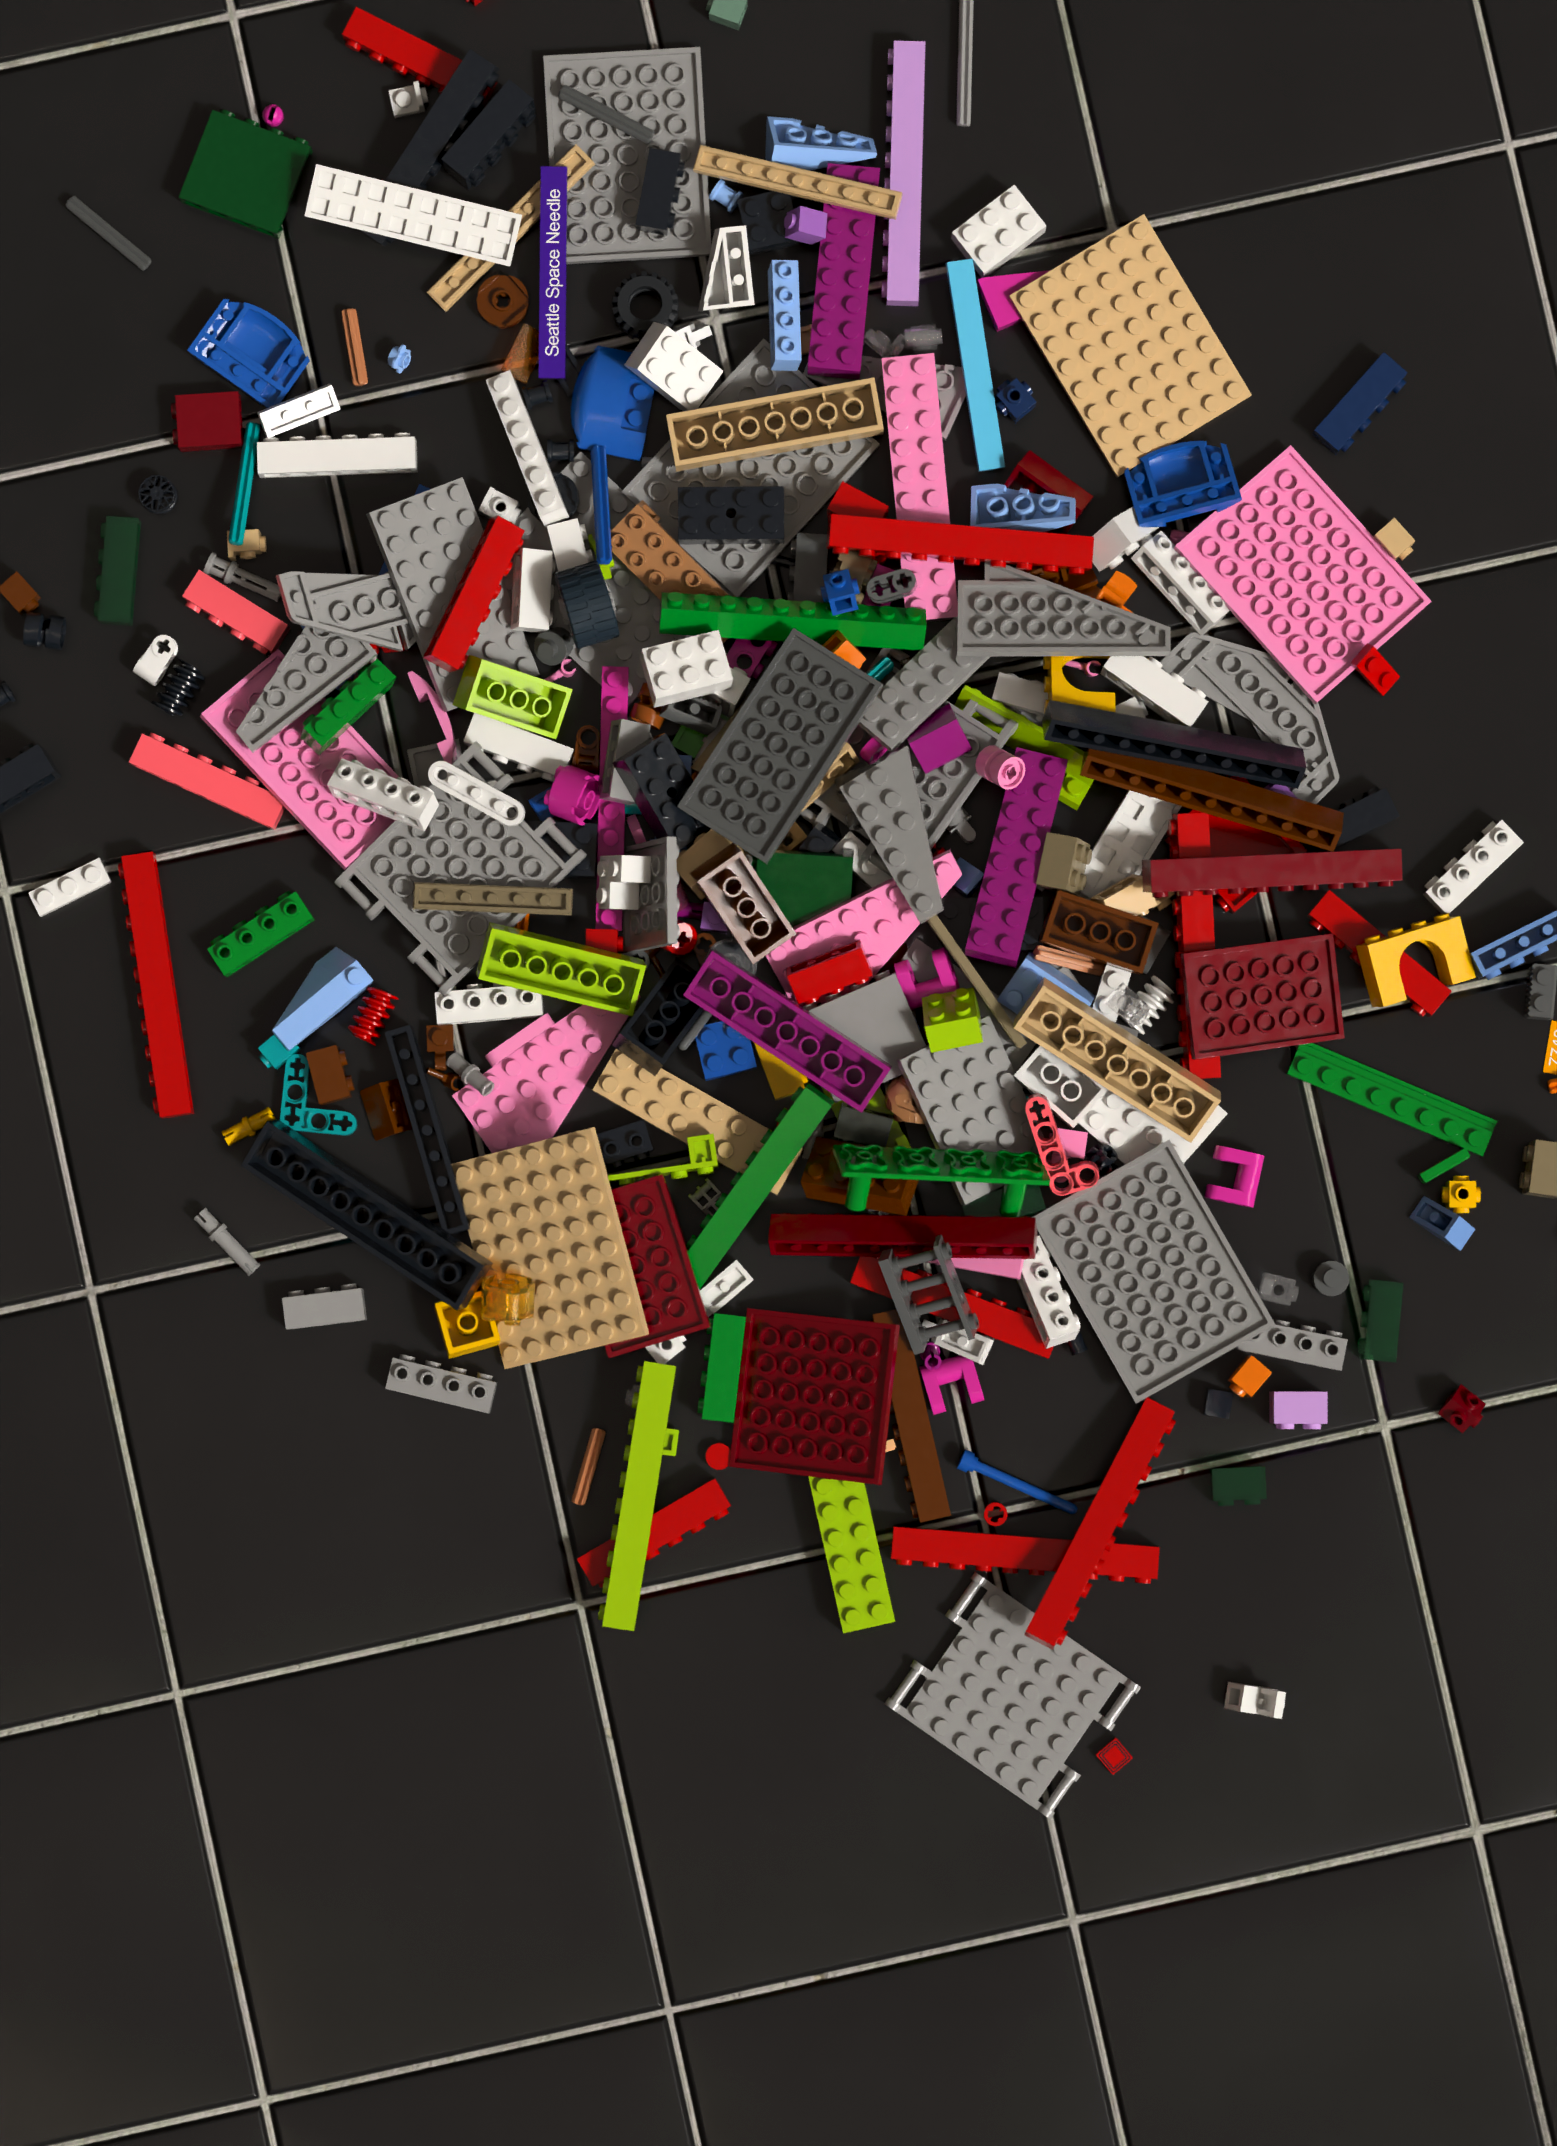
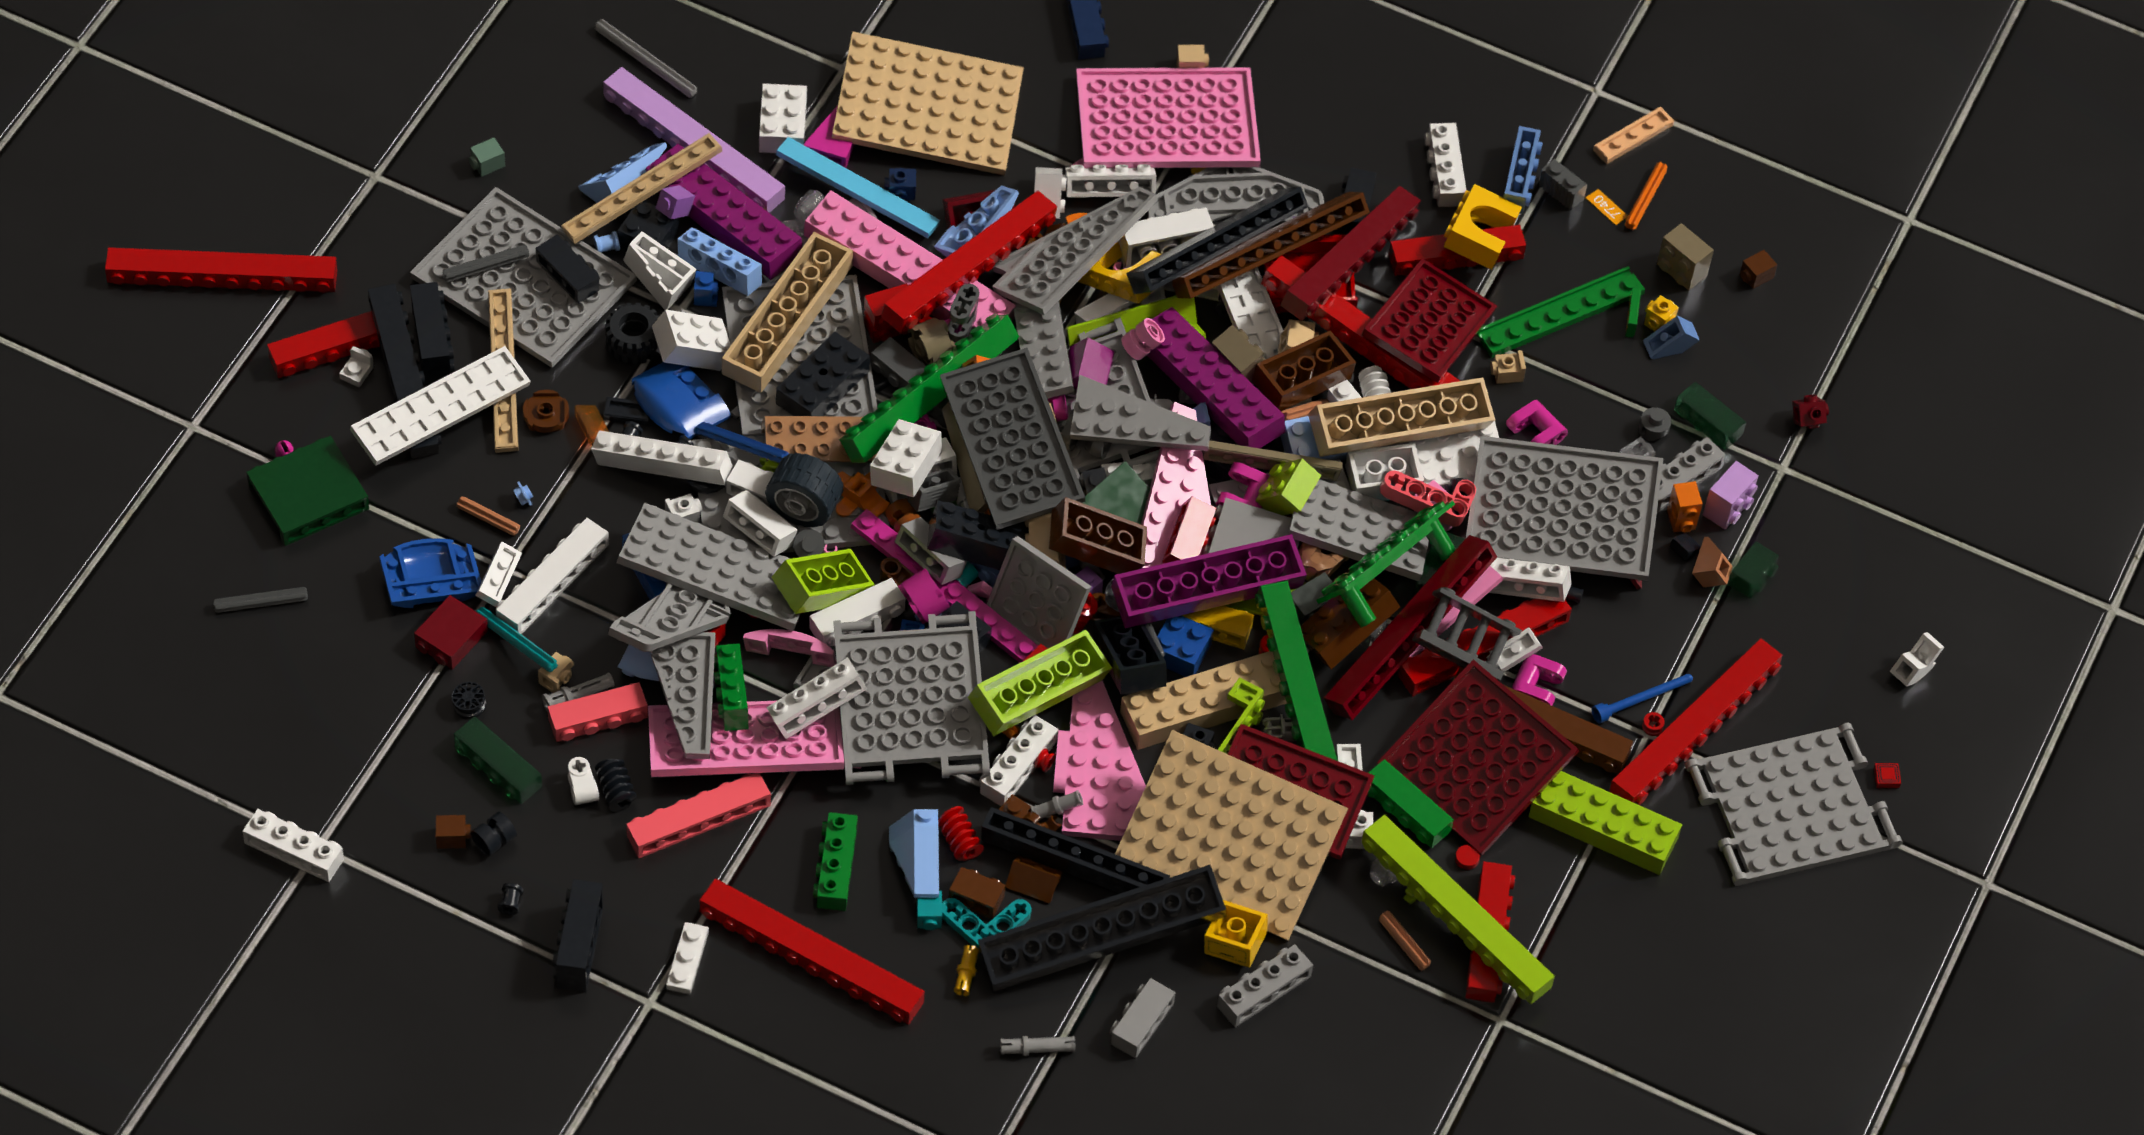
camera: 60 degrees left, 30 degrees down
(474, 594) = (732, 547): red brick -> none
(476, 793) = (871, 639): white plate -> none
(493, 898) = (952, 686): dark tan tile -> none
(507, 1298) = (1244, 879): clear yellow brick -> none
(509, 1025) = (1045, 760): none -> red bush
(553, 272) = (559, 363): dark purple tile -> none
(620, 880) = (1006, 609): white brick -> none
(642, 635) = (861, 494): none -> orange piece
(749, 326) = (705, 289): none -> blue brick
(840, 592) = (940, 337): blue brick -> none
(931, 1356) = (1511, 676): magenta pin -> none
(1099, 1524) = (1716, 656): red brick -> none
(1128, 1005) = (1368, 386): clear bracket -> none
(1182, 482) = (1046, 133): blue slope -> none
(1211, 1443) = (1711, 565): none -> nougat slope
(1285, 1110) = (1508, 367): none -> tan brick
(1375, 669) = (1267, 122): red plate -> none

